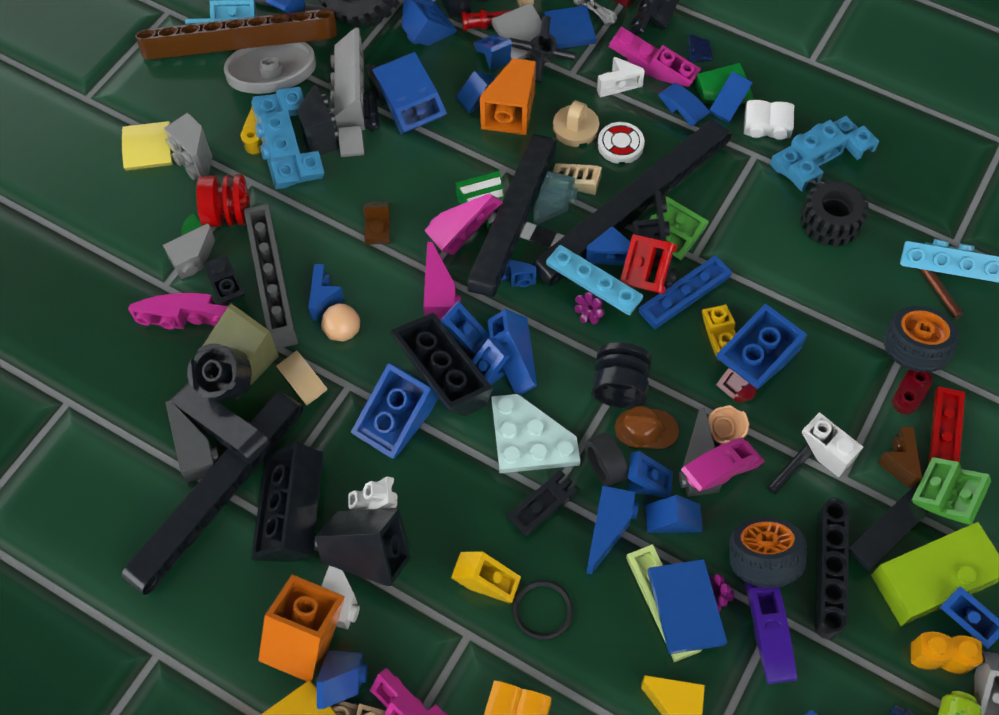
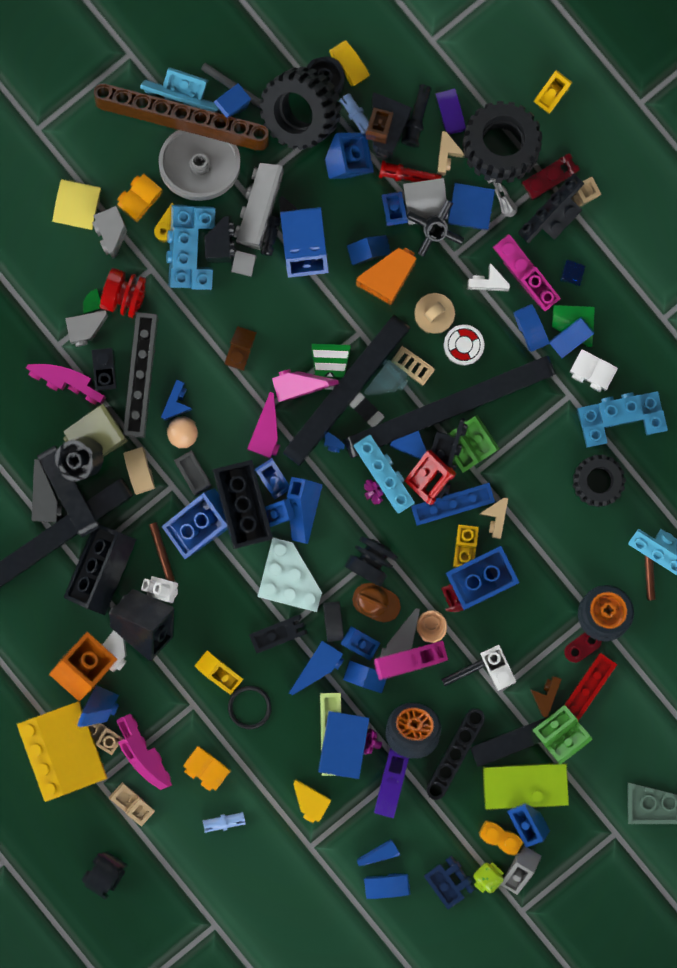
camera: 20 degrees right, 25 degrees up
(217, 116) = (139, 197): none -> light orange brick
(357, 456) = (161, 551): none -> copper bar
(365, 360) = (192, 472): none -> dark grey tile
(742, 285) = (498, 511): none -> tan slope

